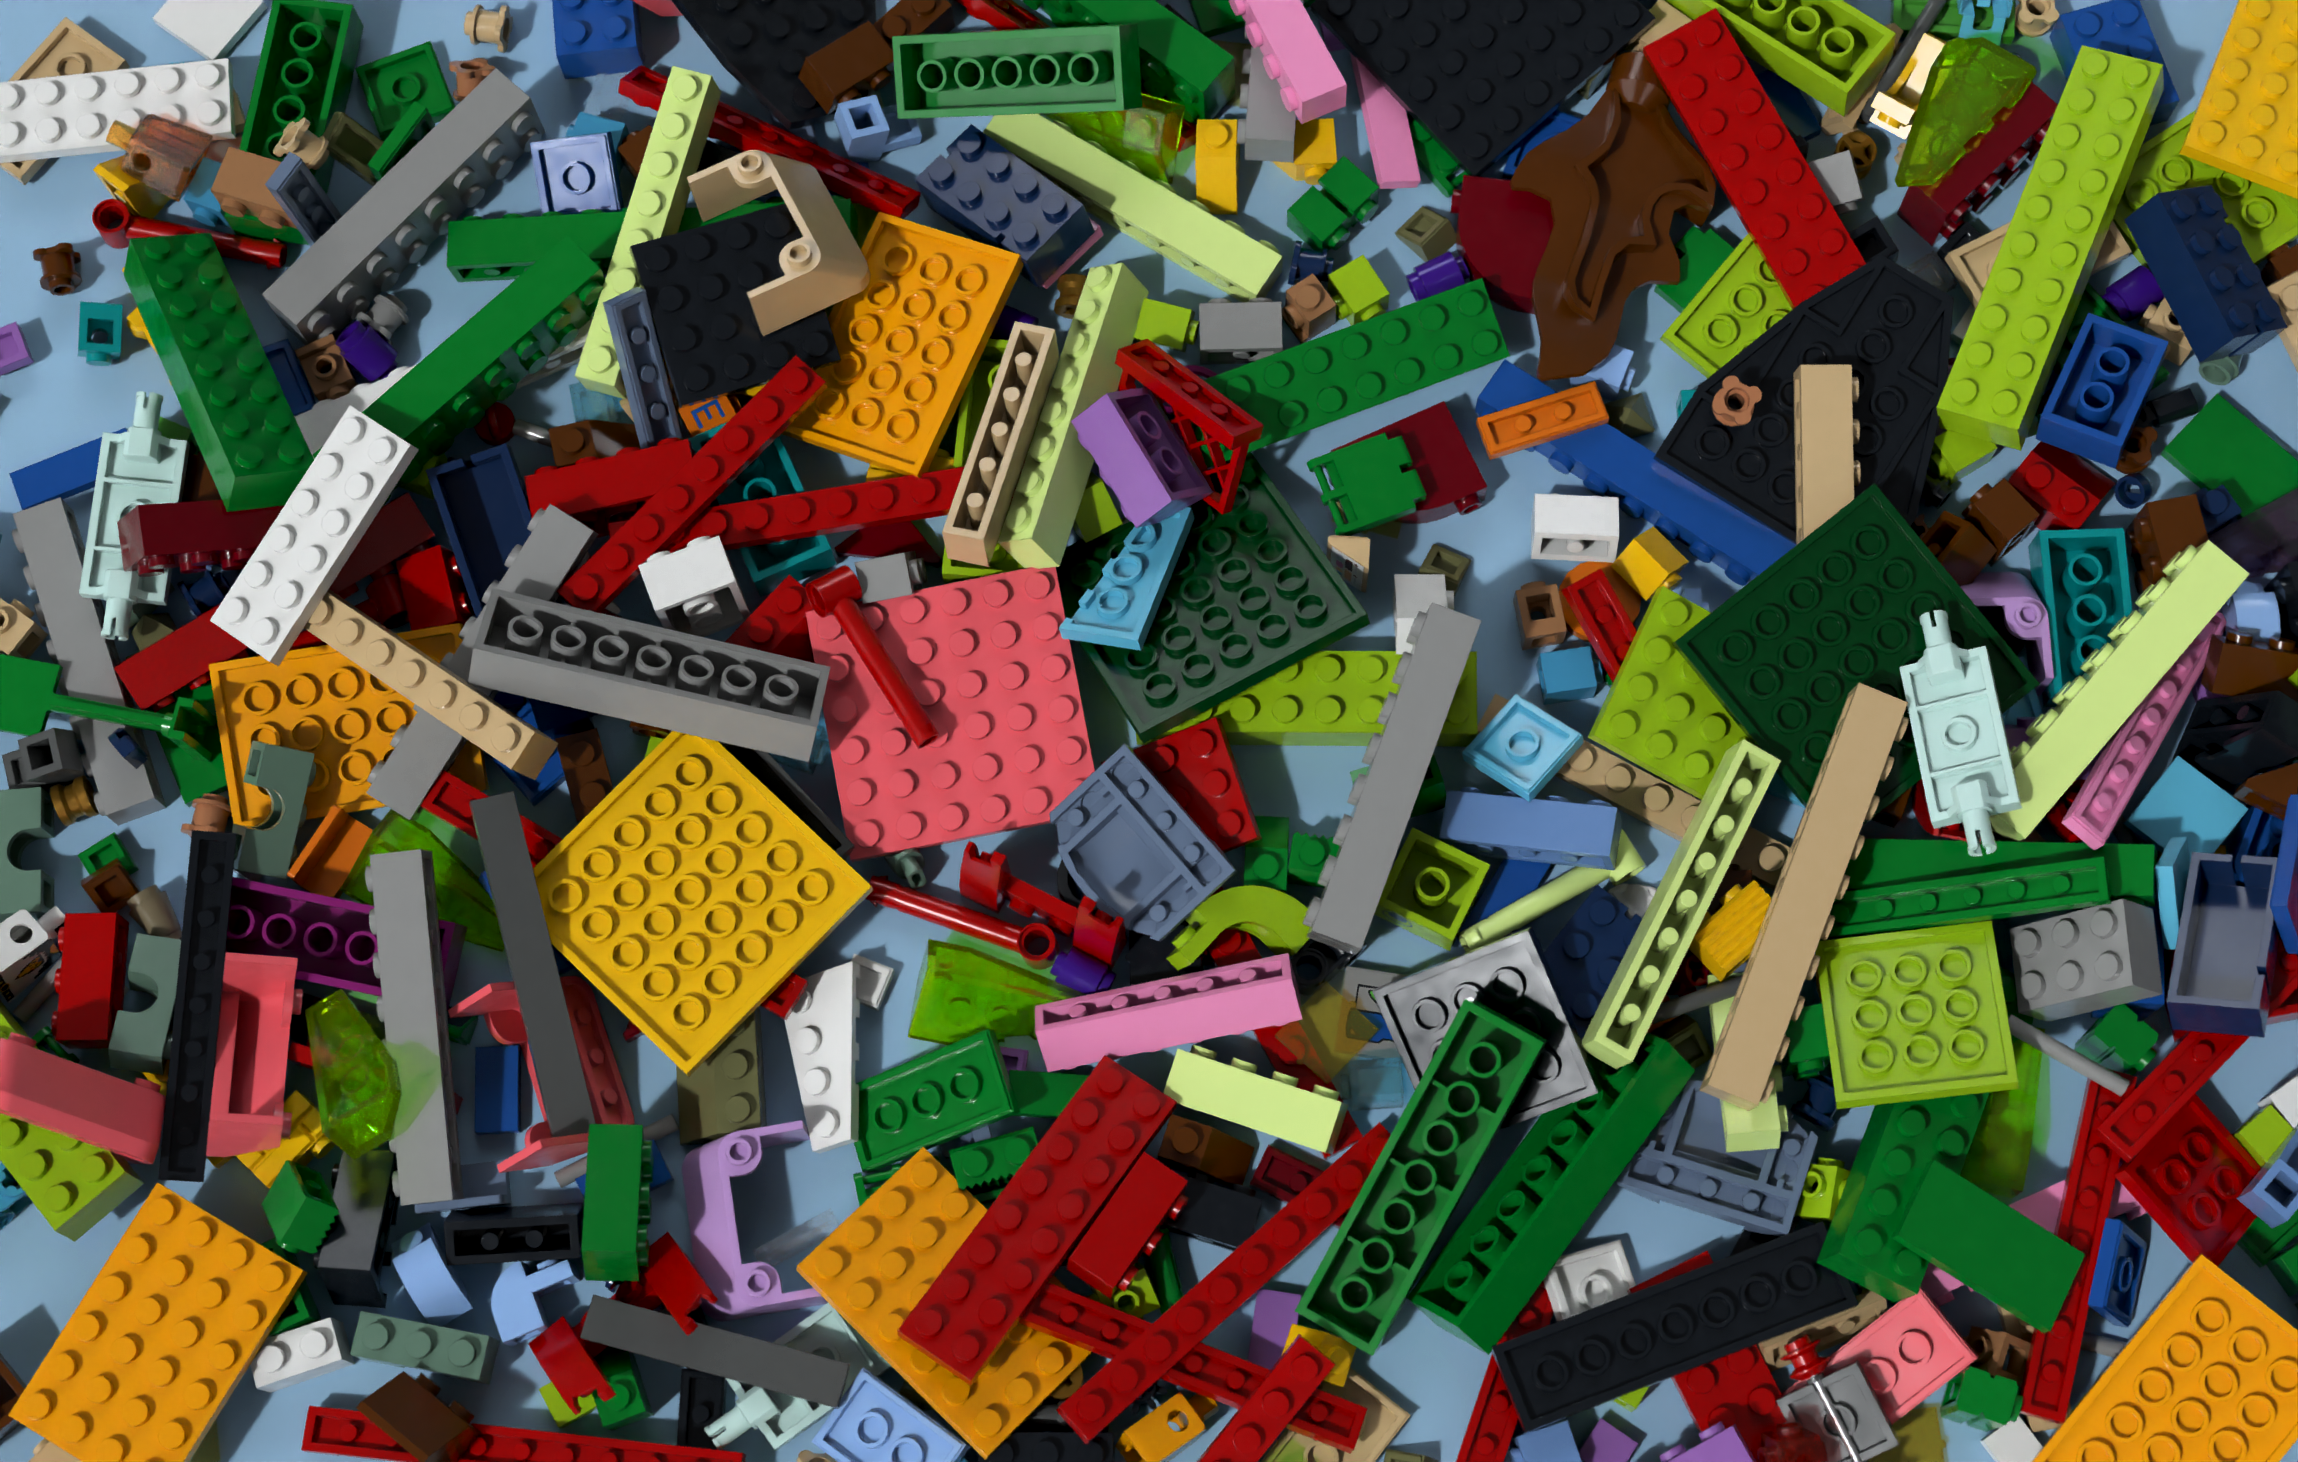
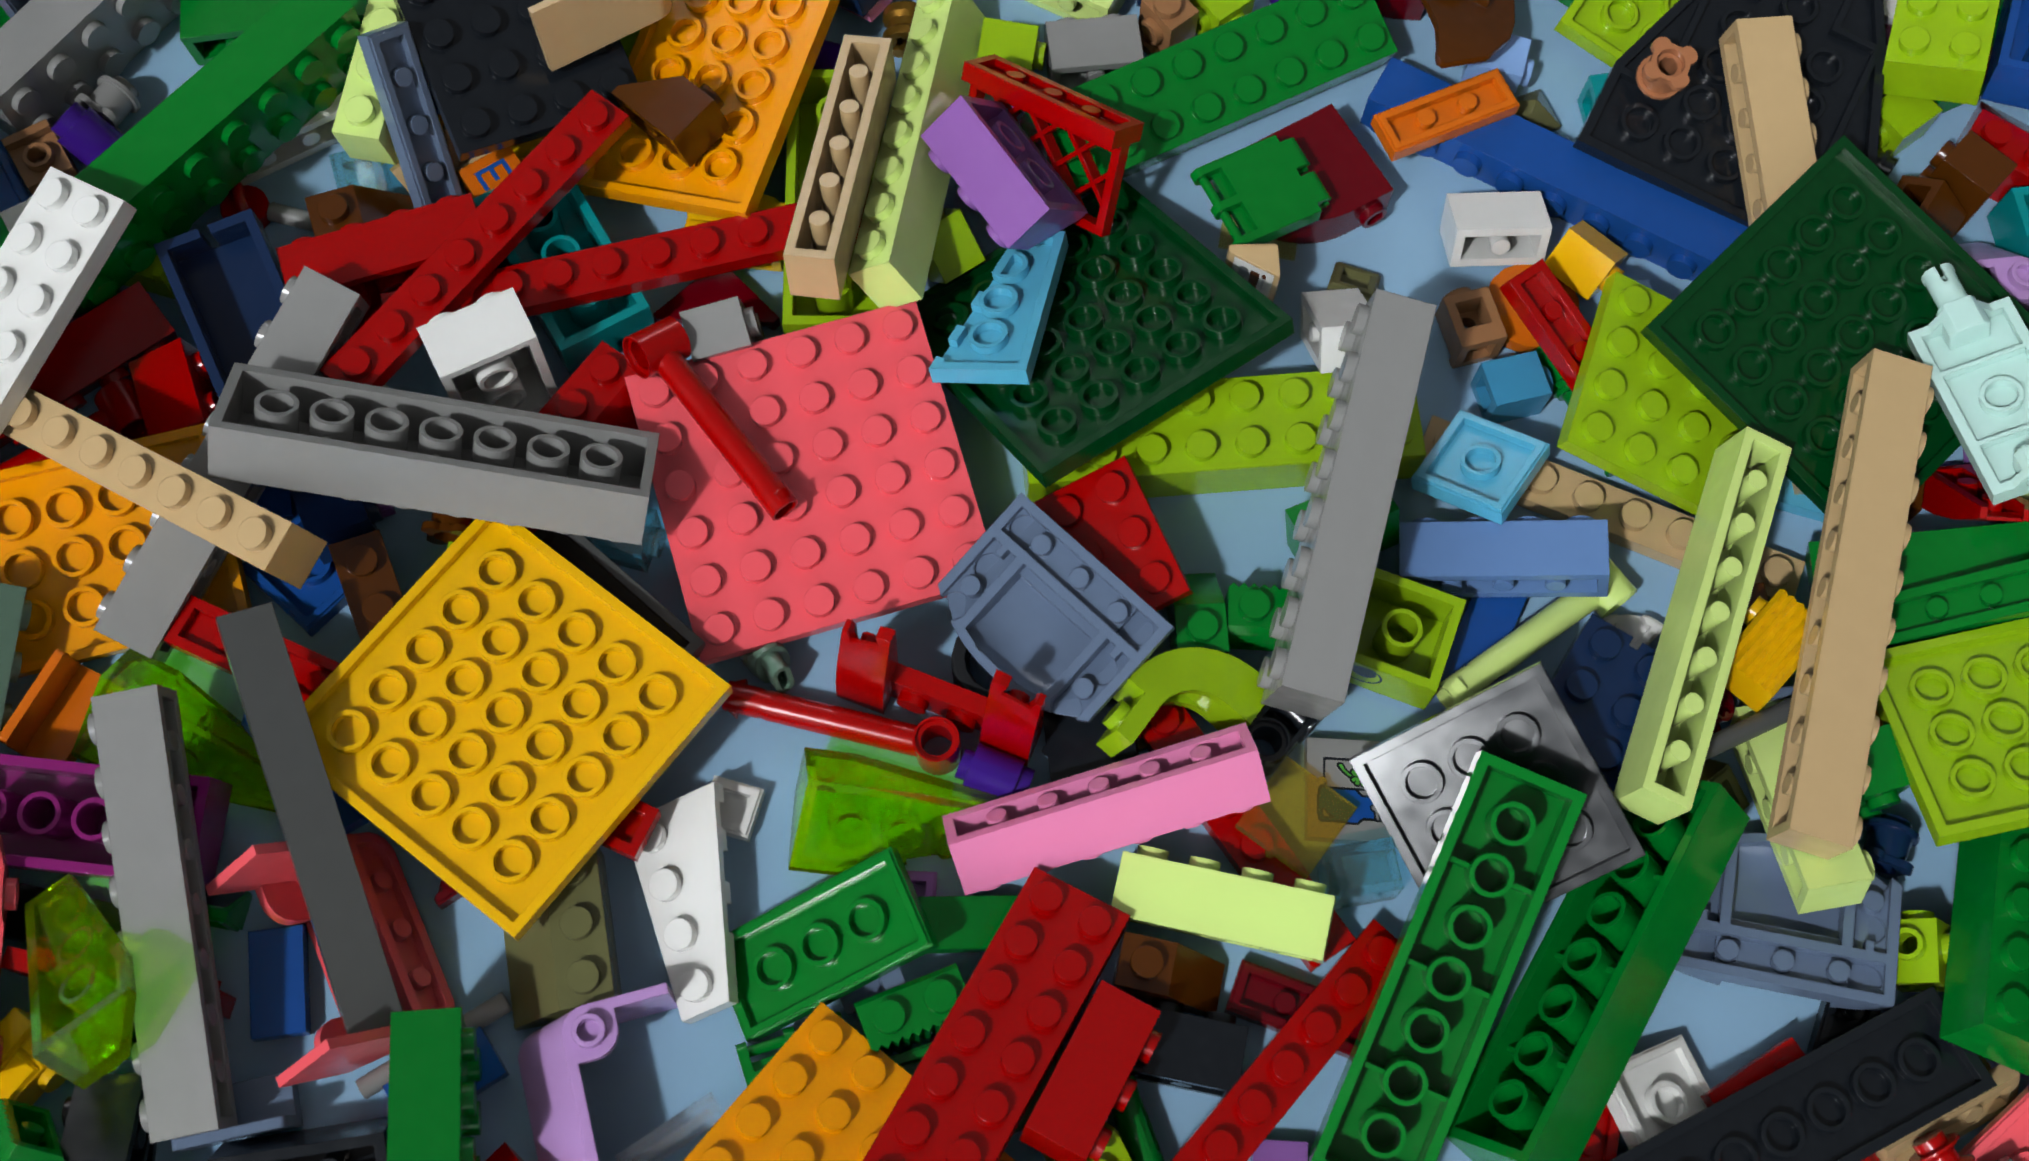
camera: 15 degrees left, 5 degrees down
(866, 379) = (675, 114): none -> reddish brown slope

